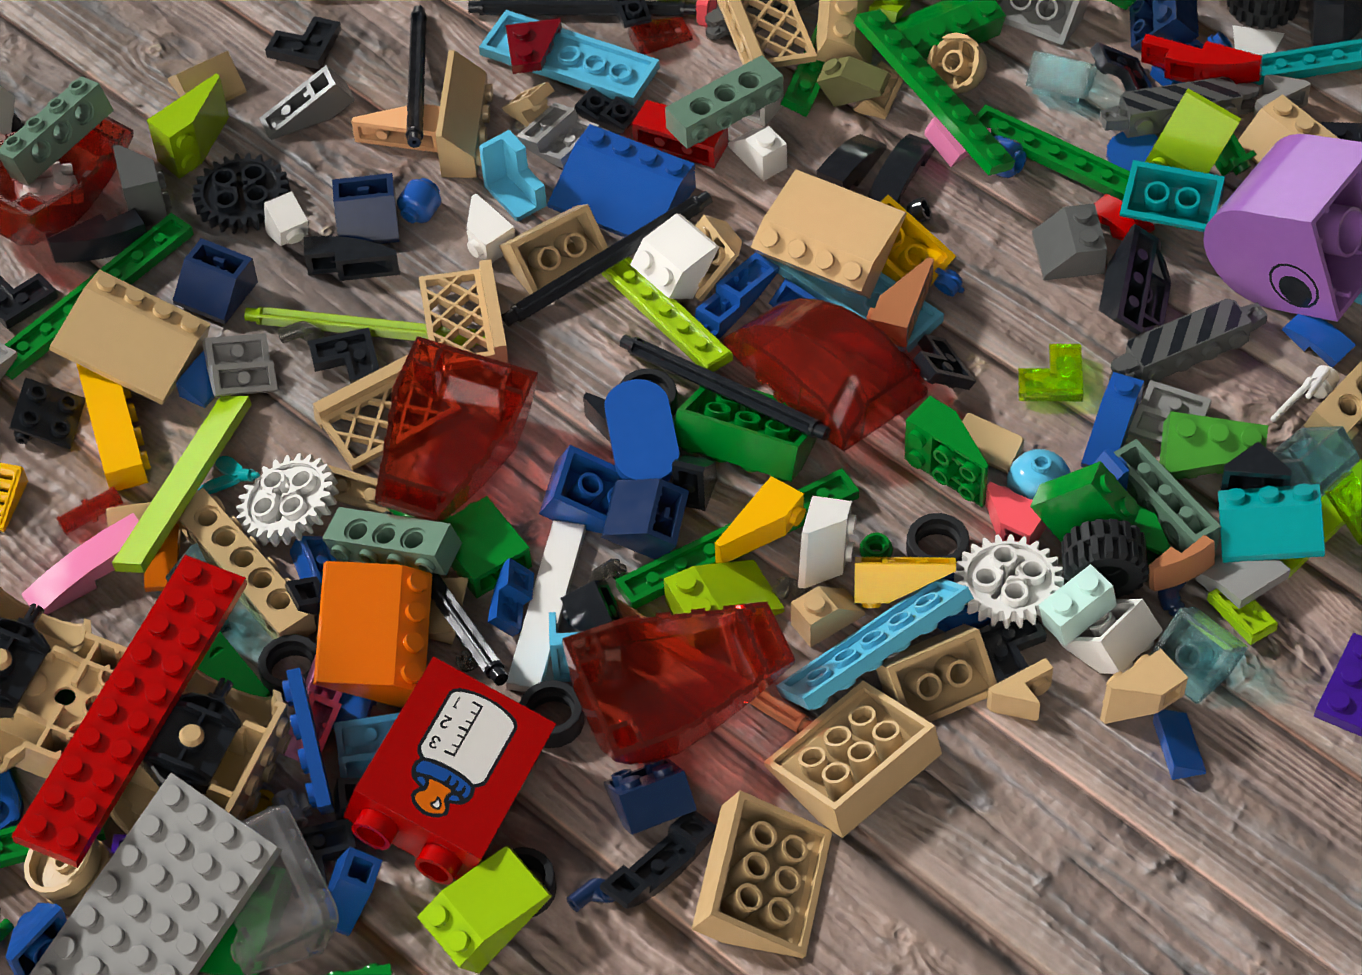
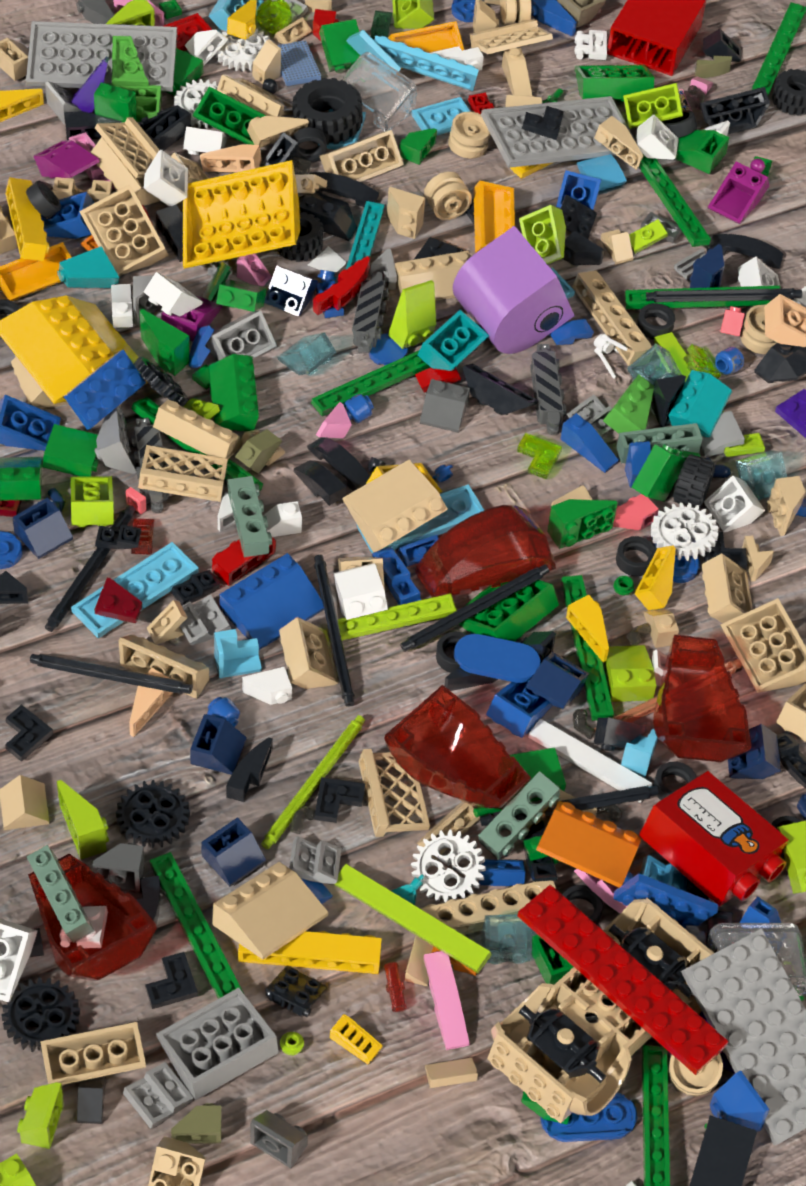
camera: 75 degrees left, 0 degrees up
(285, 219) = (207, 791): white slope -> none
(311, 103) = (91, 750): dark grey slope -> none
(487, 306) = (346, 707): tan fence -> none
(510, 593) = (576, 769): blue slope -> none
(825, 540) = (619, 601): white slope -> none
(873, 643) = (701, 600): medium azure plate -> none
(901, 303) = (460, 496): nougat slope -> none
(934, 92) = (302, 412): green plate -> none
(941, 364) = (509, 498): black plate -> none
(959, 62) = (276, 395): tan cylinder -> none
(1034, 469) = (612, 487): medium azure cylinder -> none
(1077, 605) = (721, 505): light aqua brick -> none
(1121, 65) = (322, 325): black plate -> none
(1177, 568) = (708, 445): nougat slope -> none

